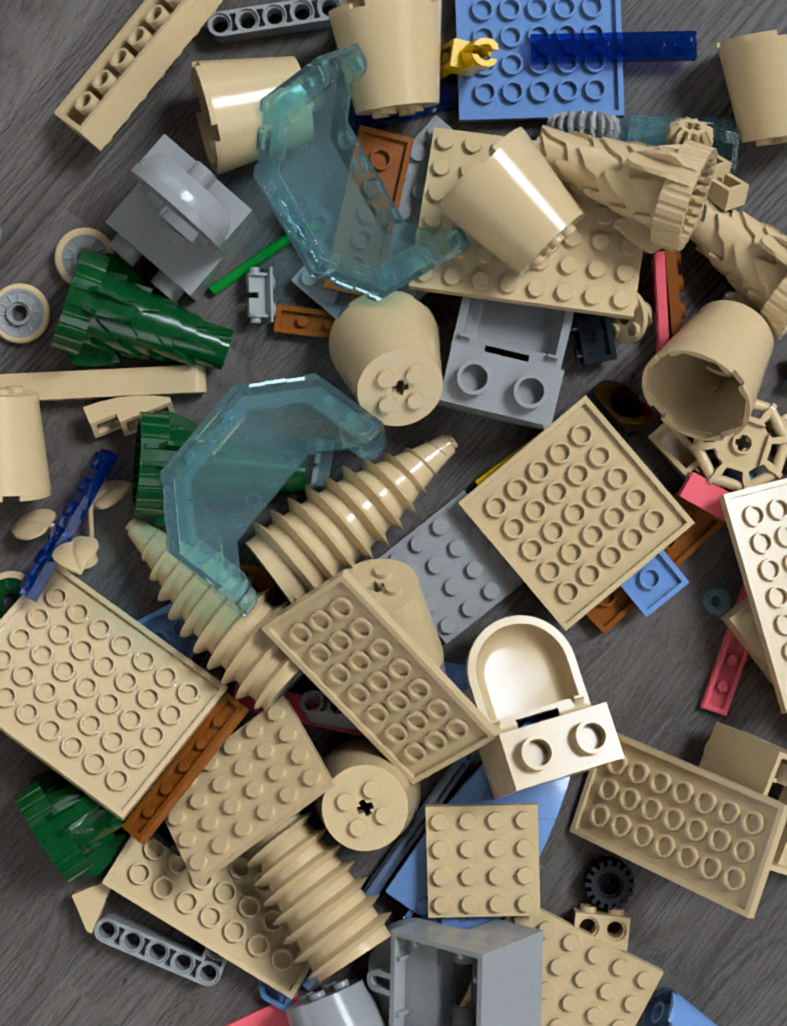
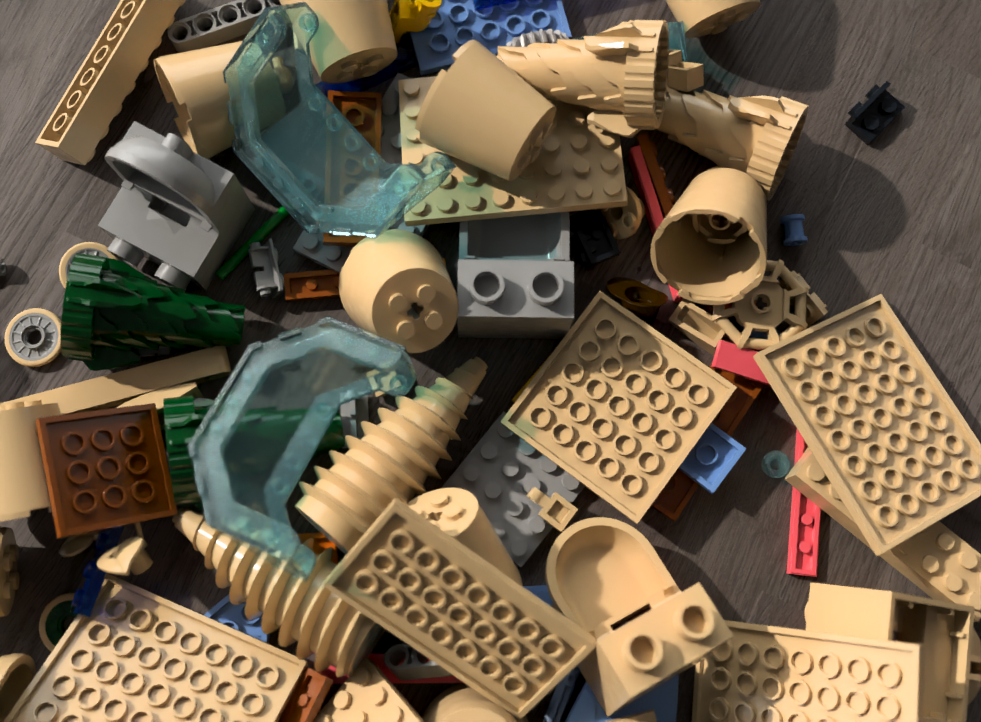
camera: 20 degrees left, 10 degrees down
(76, 469) = (105, 469): none -> dark orange plate
(491, 598) = (554, 510): none -> tan plate

